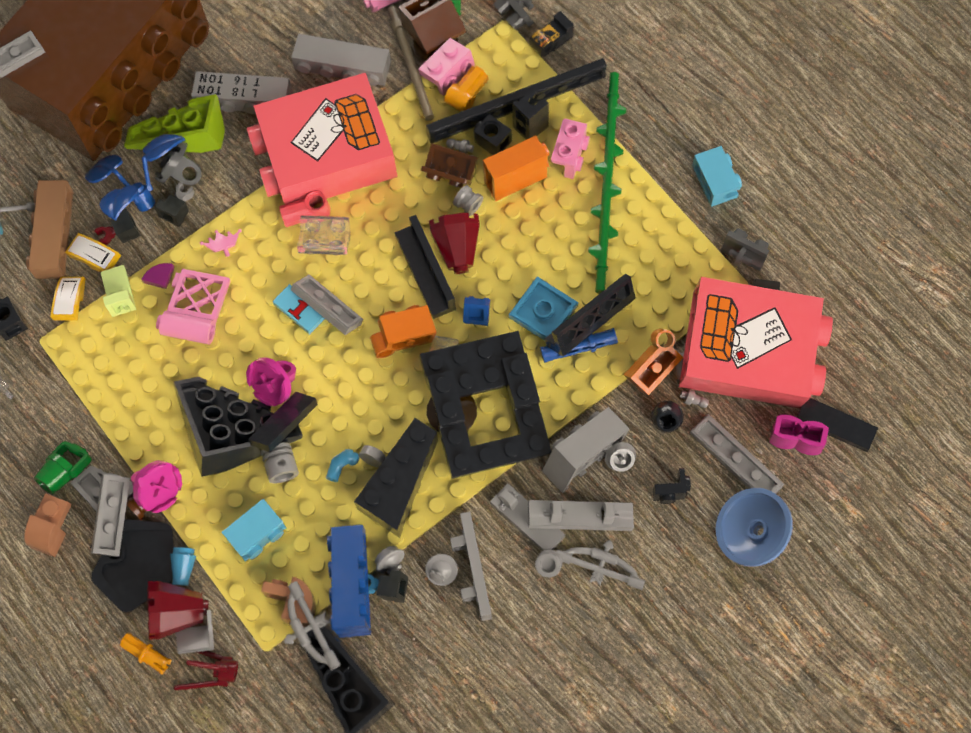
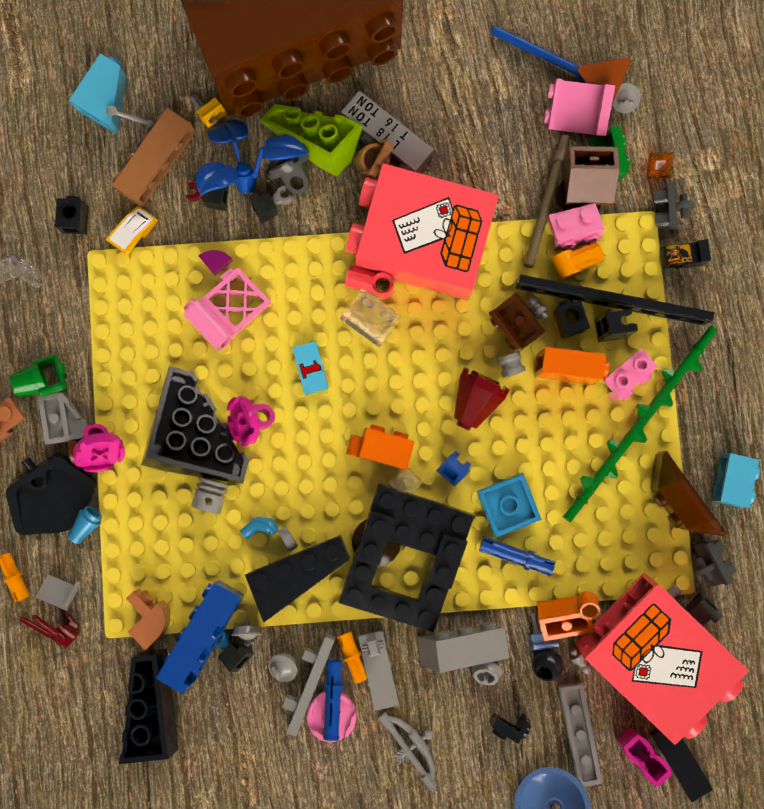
camera: 25 degrees right, 15 degrees up
(77, 165) = (210, 112): none -> yellow piece
(93, 253) = (175, 203): slope -> none
(110, 515) = (48, 451): light grey hinge -> none
(118, 291) = (173, 253): yellowish green bracket -> none
(172, 609) = (52, 560): dark red cone -> none
(222, 242) = (285, 264): bright pink piece -> none
(242, 113) = (372, 156): none -> medium nougat piece
(254, 530) = (154, 539): medium azure brick -> none
(283, 422) = (232, 464): black tile -> none
(327, 304) = (334, 380): light grey tile -> none
(329, 657) = (149, 657): light grey piece -> none
(340, 59) = (489, 158): light grey brick -> none
(425, 269) = (435, 402): black fence -> none
(487, 539) = (332, 700): none -> blue pin
(496, 521) = (352, 657): none -> light orange axle
(513, 585) = (316, 716): none -> bright pink tile
(548, 563) = (370, 719): light grey tile -> none
(580, 515) = (421, 698): light grey hinge -> none
(591, 316) = (543, 541): black fence -> none
(645, 402) = (537, 640): none -> light blue piece
(683, 214) = (680, 499): none -> reddish brown wedge

